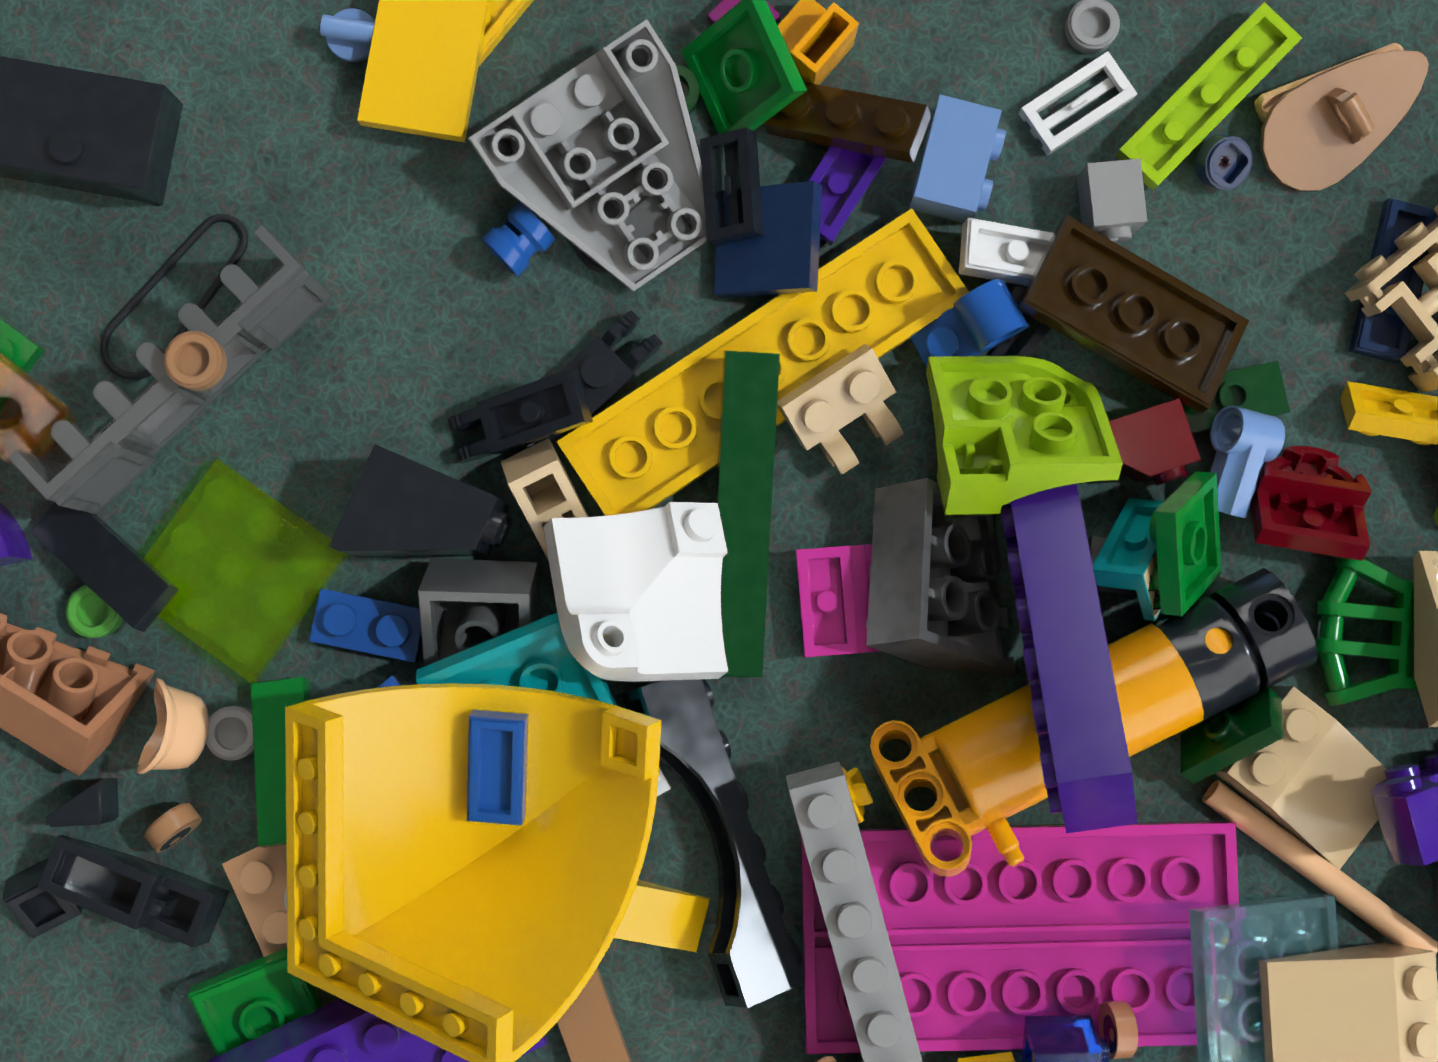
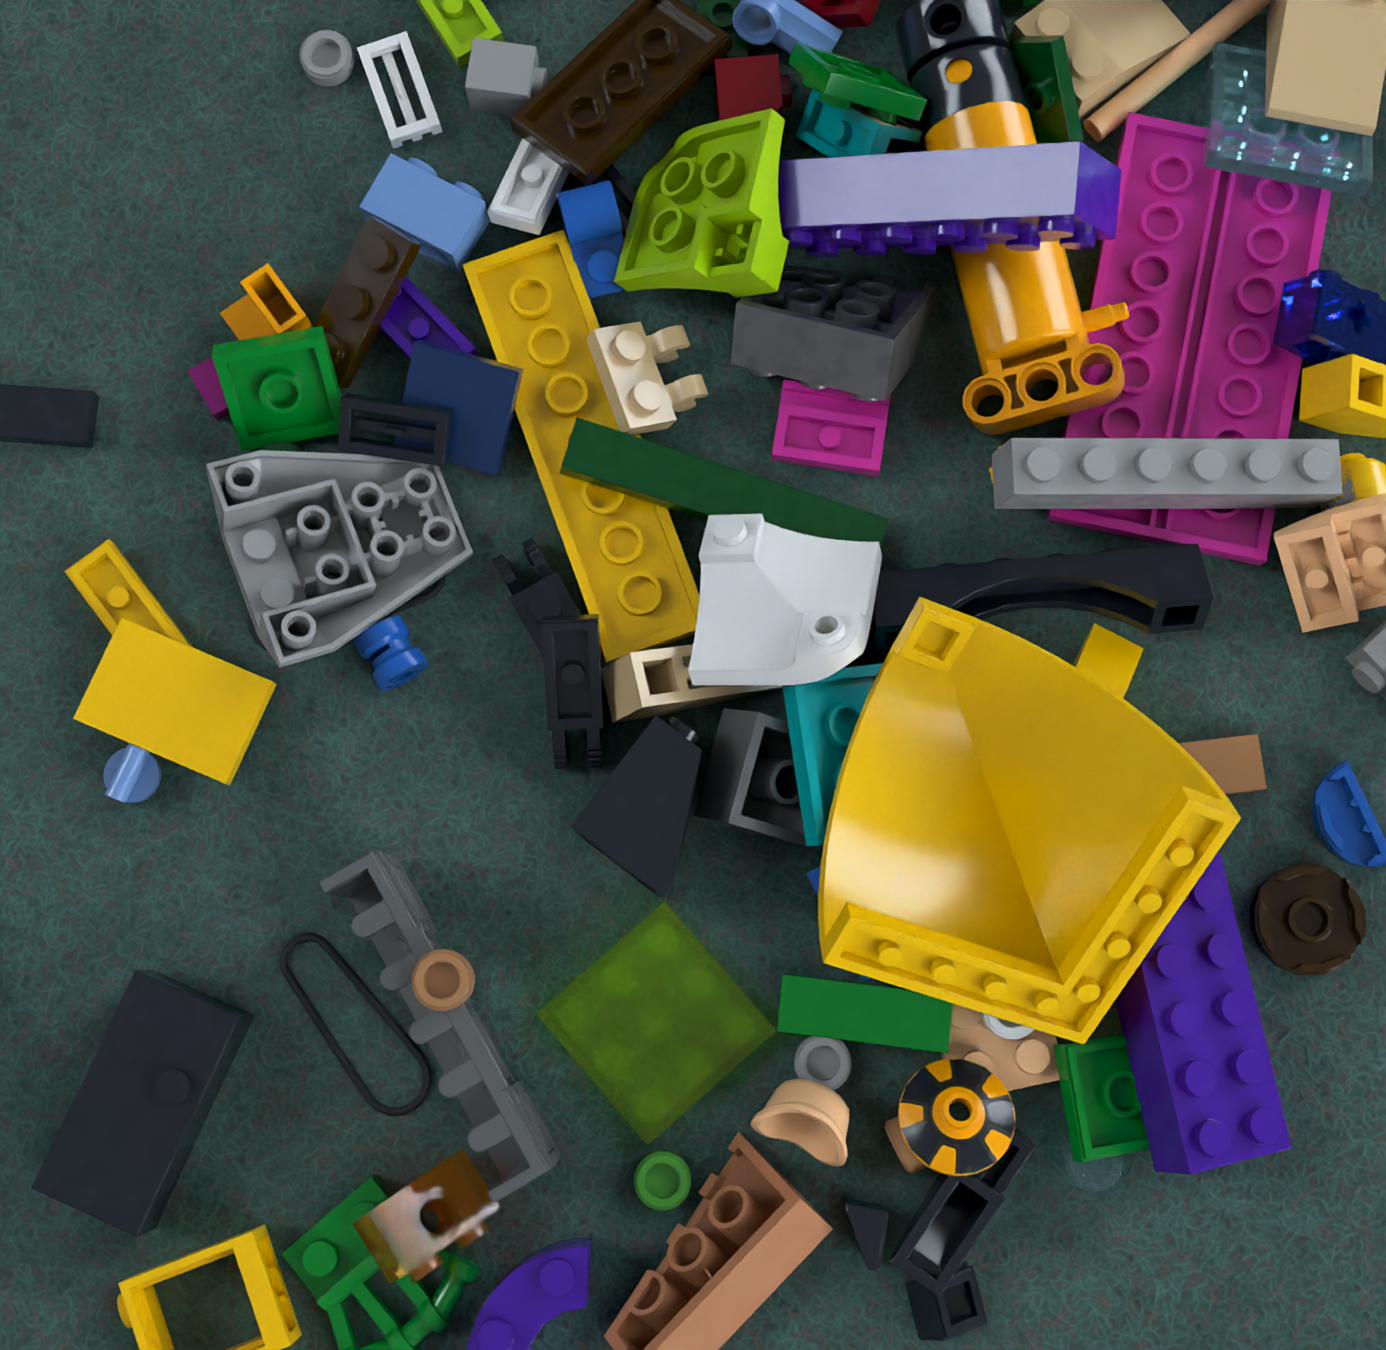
camera: 70 degrees left, 5 degrees down
(105, 564) = (615, 1153): black tile -> none
(195, 837) = (950, 1144): none -> dish
(367, 625) = (745, 897): blue plate -> none
(497, 767) = (924, 785): blue tile -> none
(1119, 1028) = (1300, 257): nougat tile -> none

